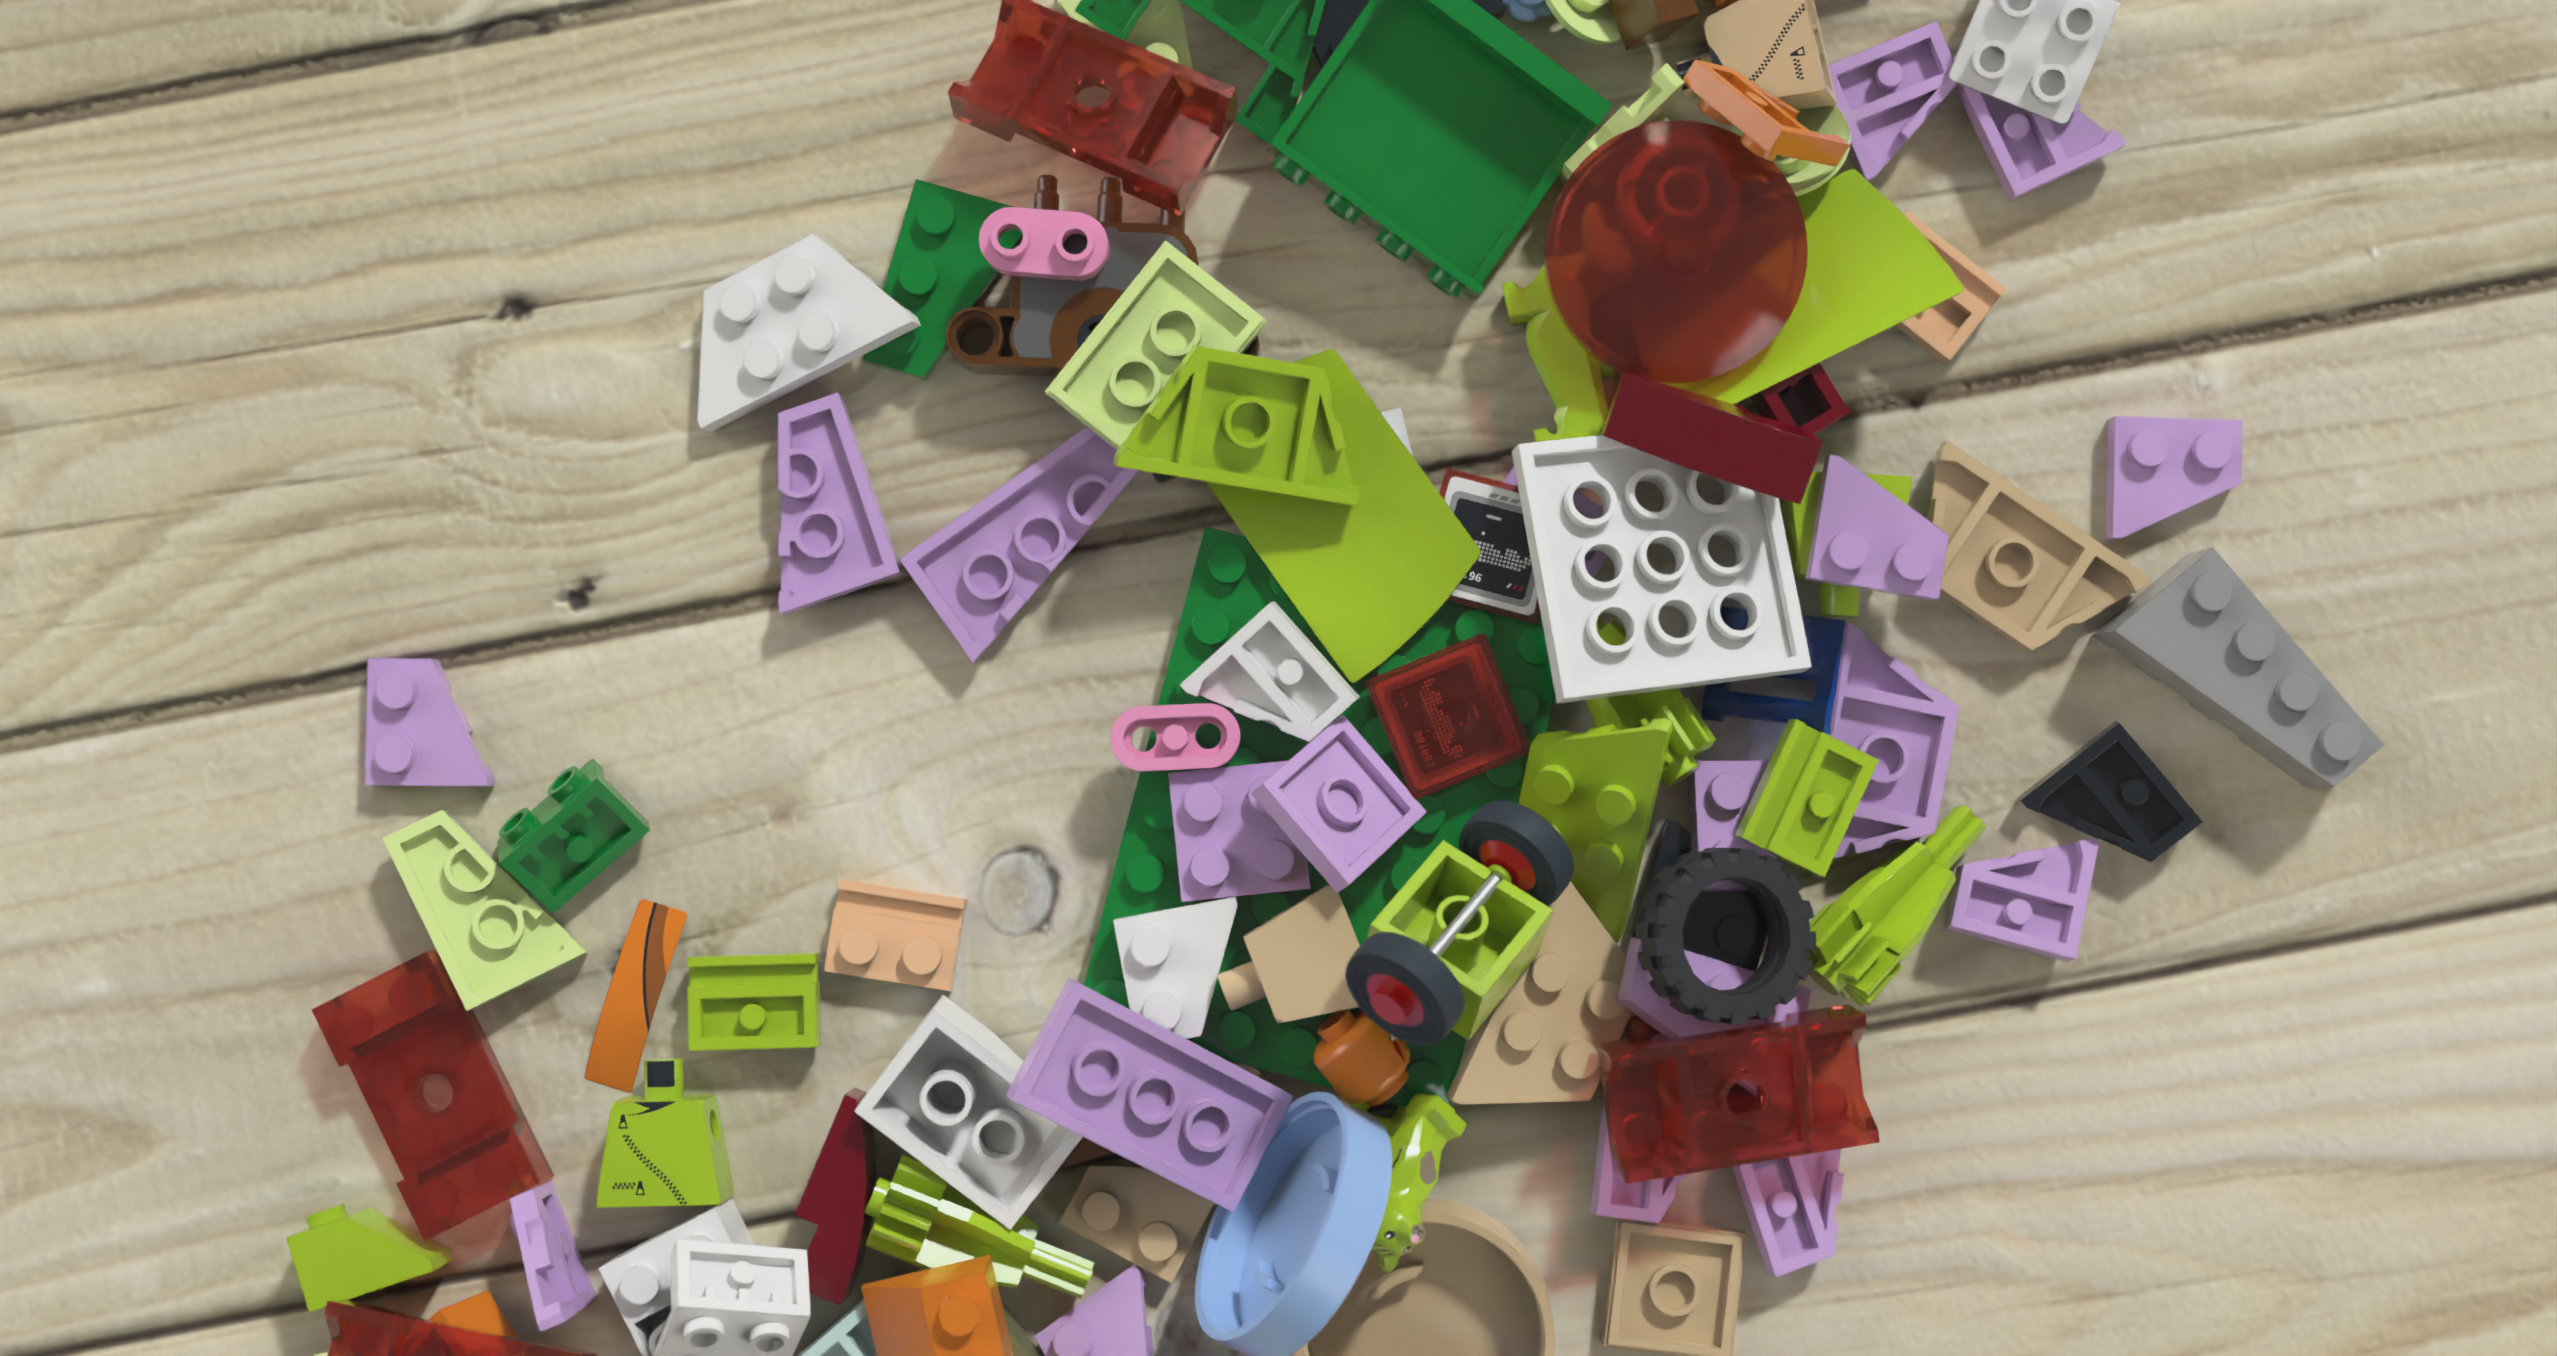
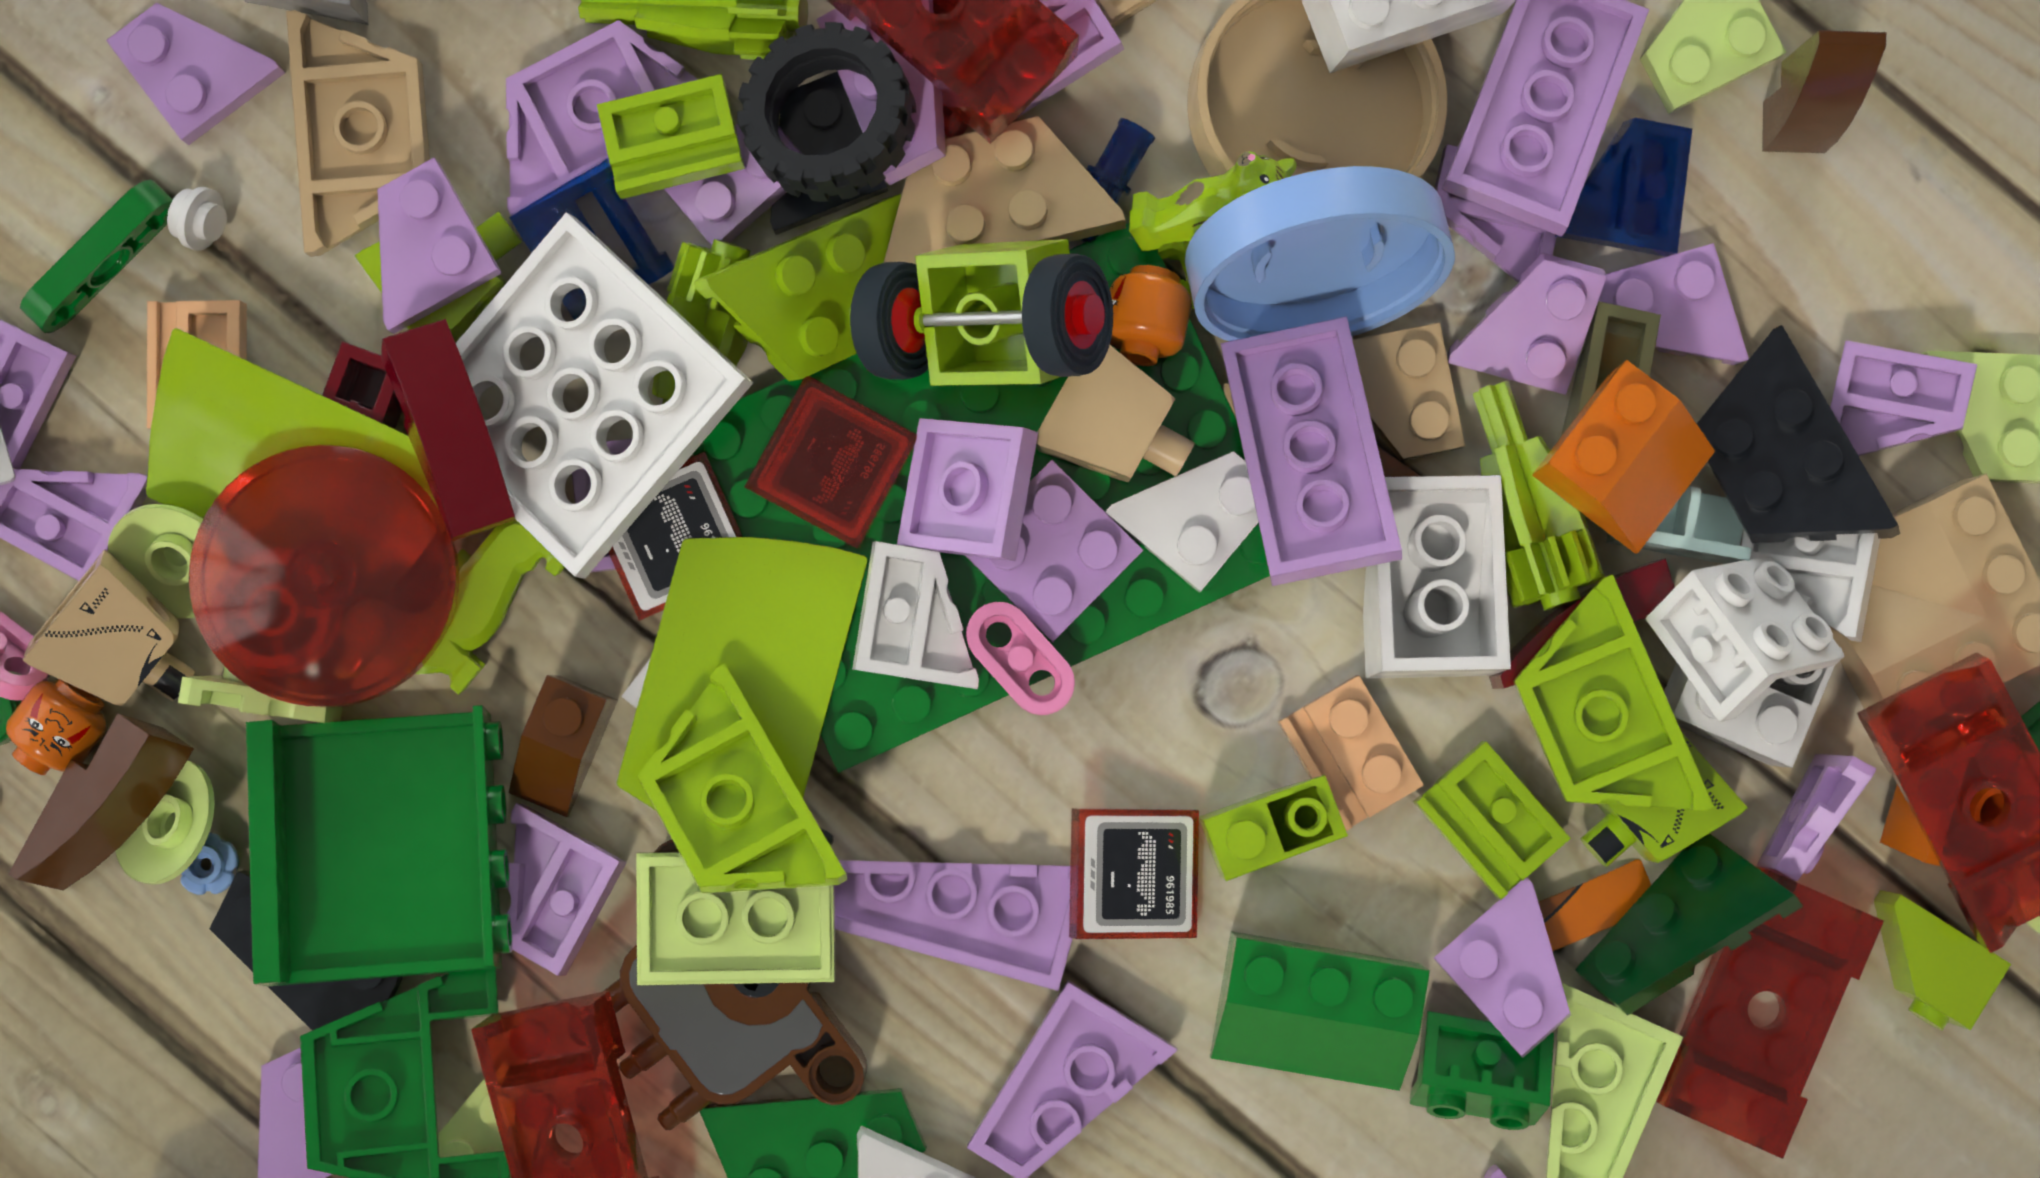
camera: 140 degrees left, 0 degrees up
(555, 1085) = (1686, 915): none -> dark green wing
(628, 920) = (1510, 969): none -> lavender wing
(719, 747) = (1319, 1011): none -> green slope
(758, 1158) = (1607, 713): none -> lime wing
(887, 825) = (1272, 827): none -> lime slope
(940, 690) = (1133, 873): none -> tile
(1043, 242) = (722, 1077): bright pink plate -> none
(1293, 239) = (555, 889): none -> lavender wing
(1402, 332) = (560, 743): none -> reddish brown slope
(1504, 1137) = (1120, 160): none -> clear blue axle
(1764, 119) = (161, 596): orange wing -> none
(2042, 379) = (197, 217): none -> white plate
(2073, 280) = (97, 257): none -> green beam

